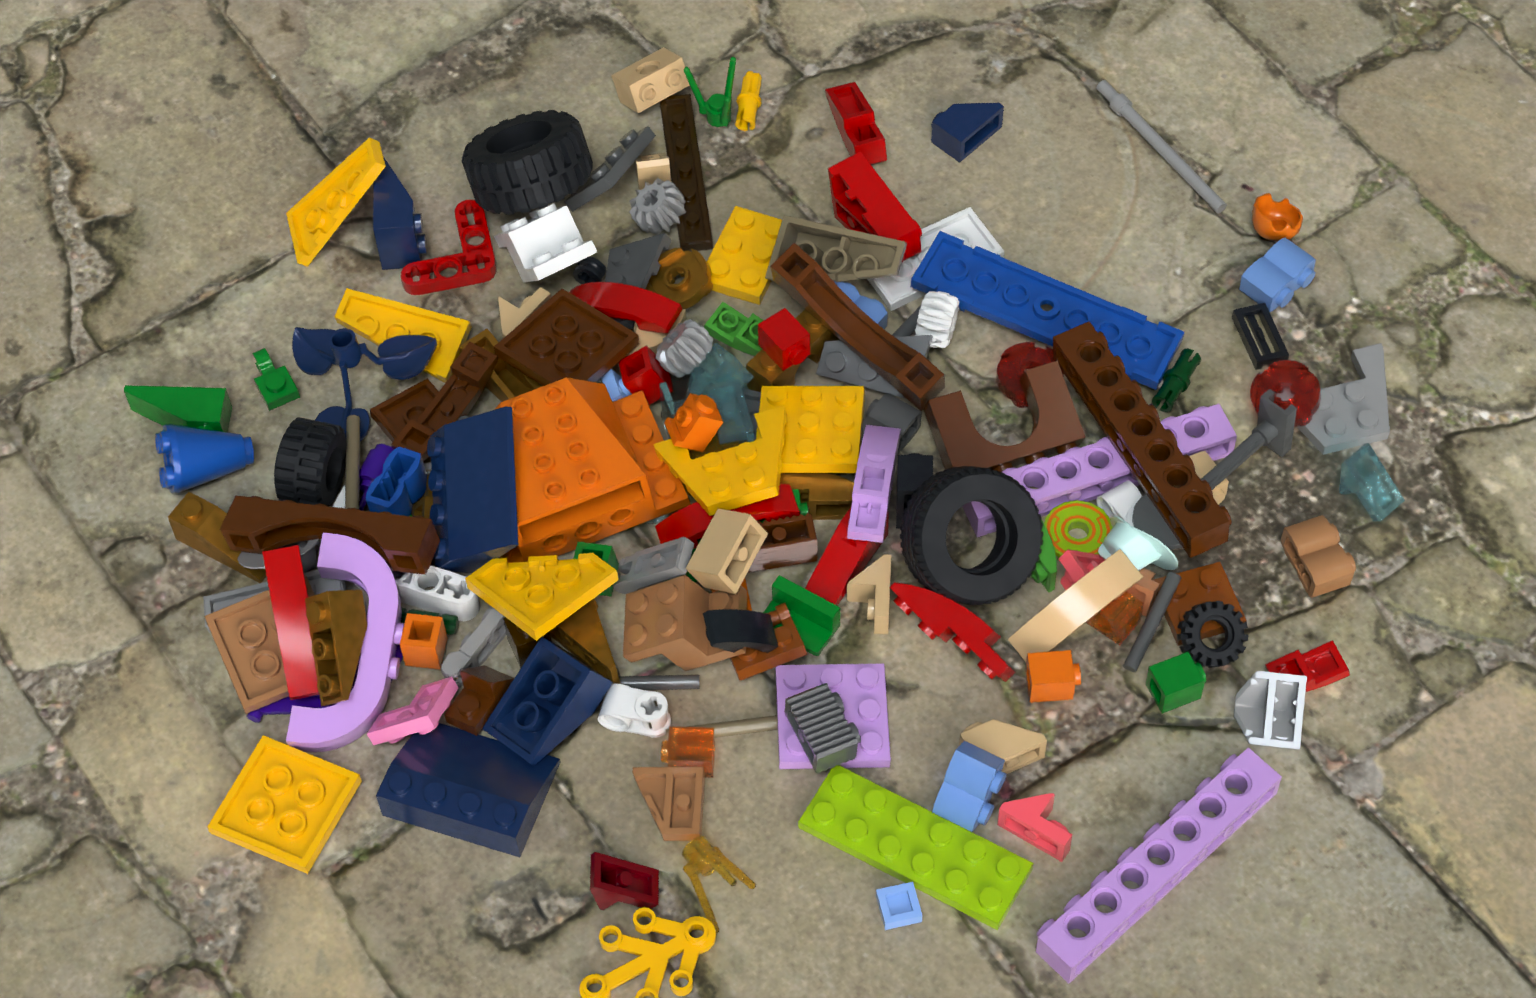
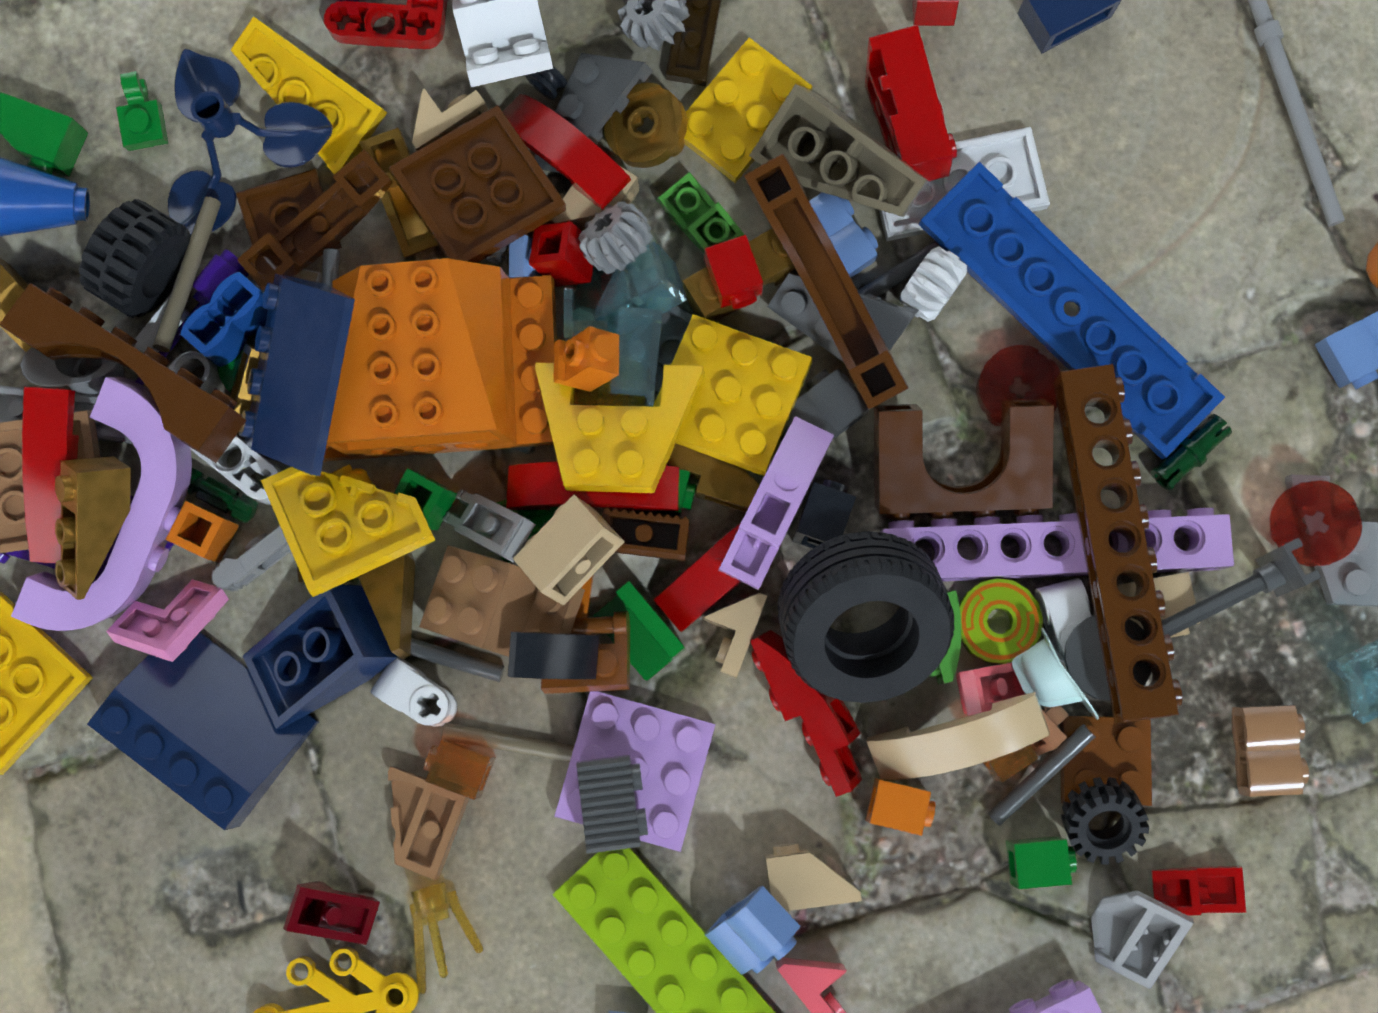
camera: 20 degrees right, 25 degrees up
(478, 698) = (252, 615): reddish brown slope -> none
(1267, 358) = (1298, 422): black tile -> none

